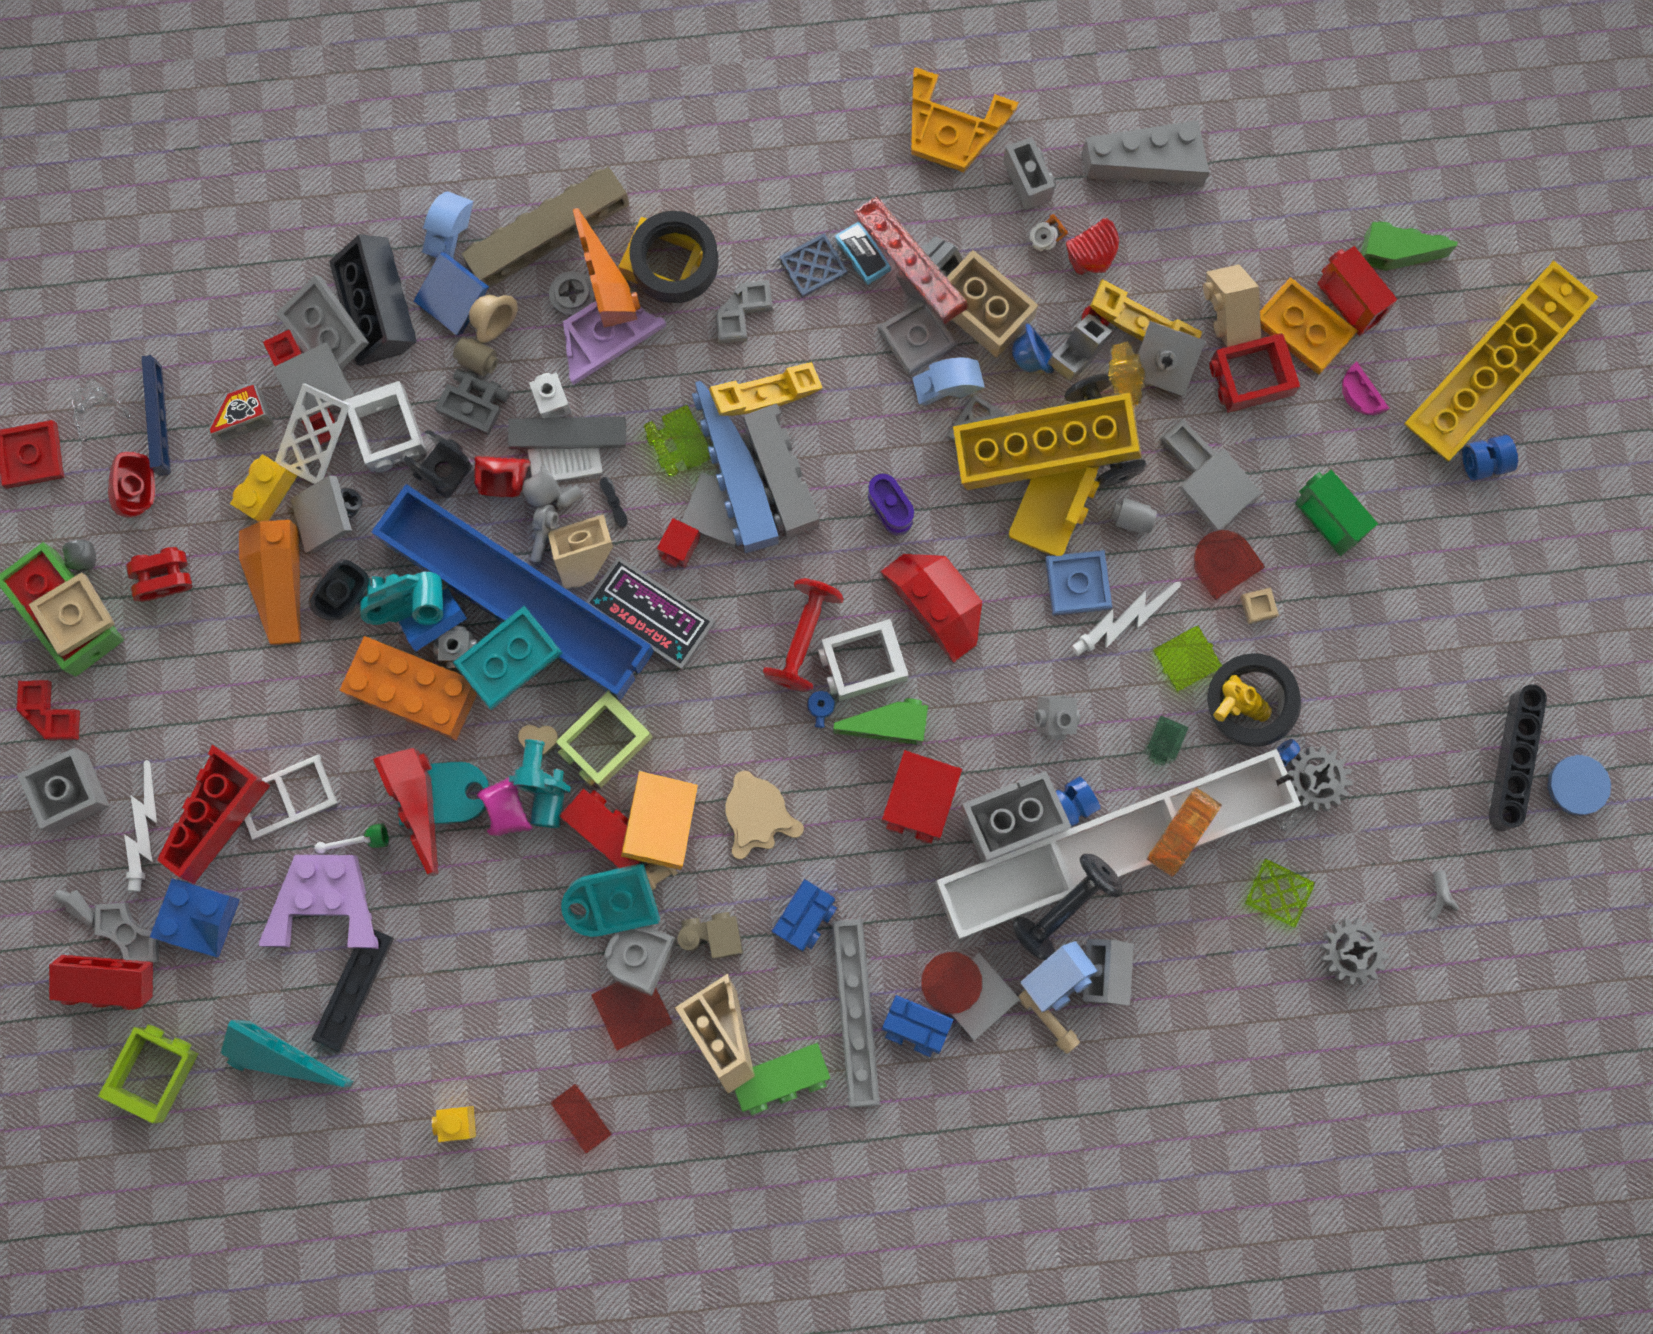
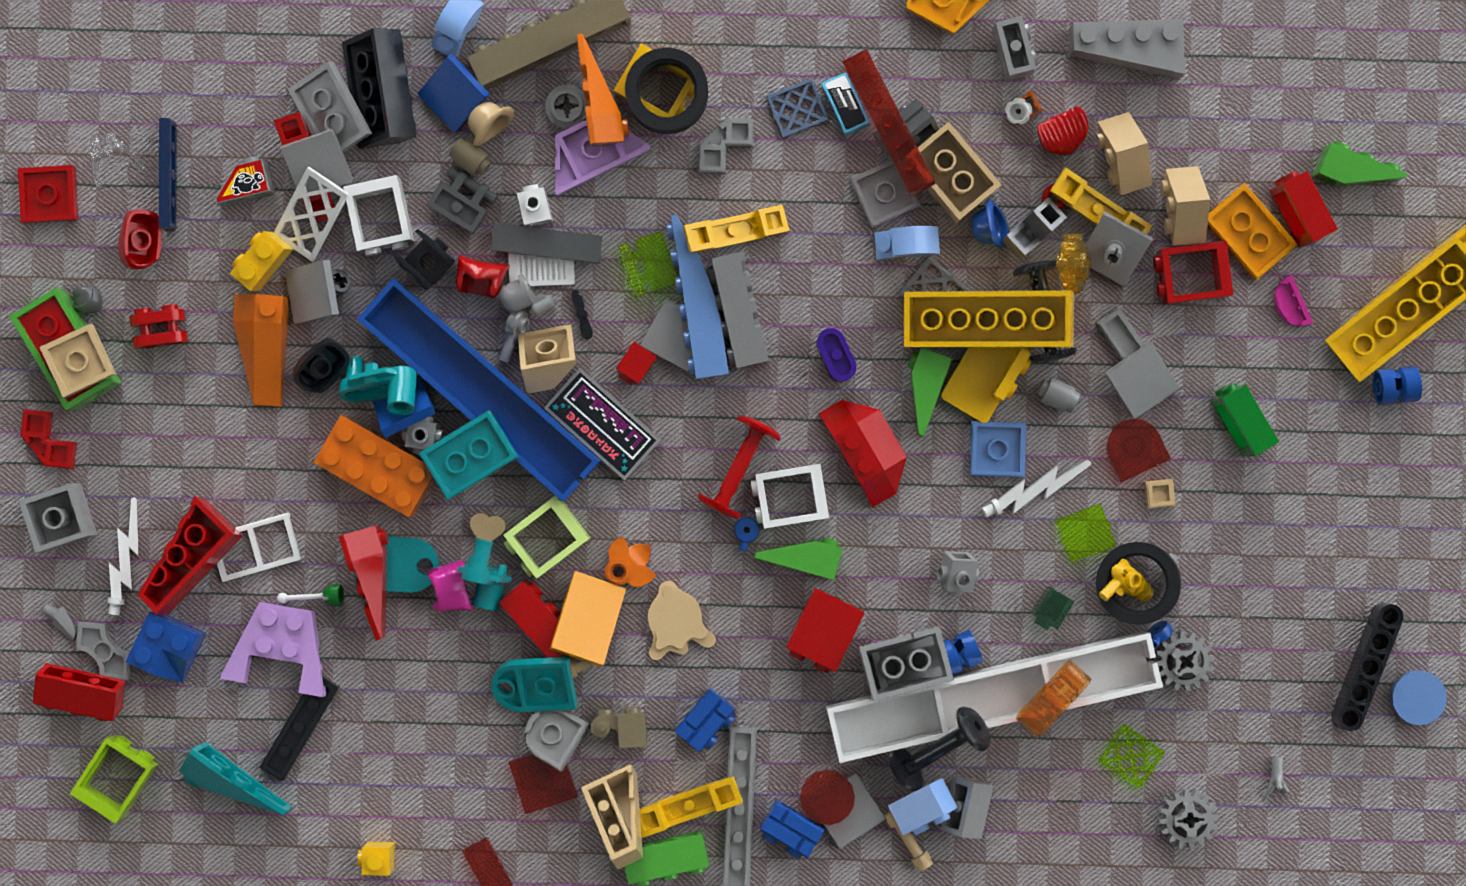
camera: 10 degrees right, 10 degrees up
(701, 755) = (632, 561): none -> orange plate
(799, 1014) = (689, 805): none -> yellow slope
(990, 522) = (926, 382): none -> bright green slope
(1164, 259) = (1125, 153): none -> tan brick

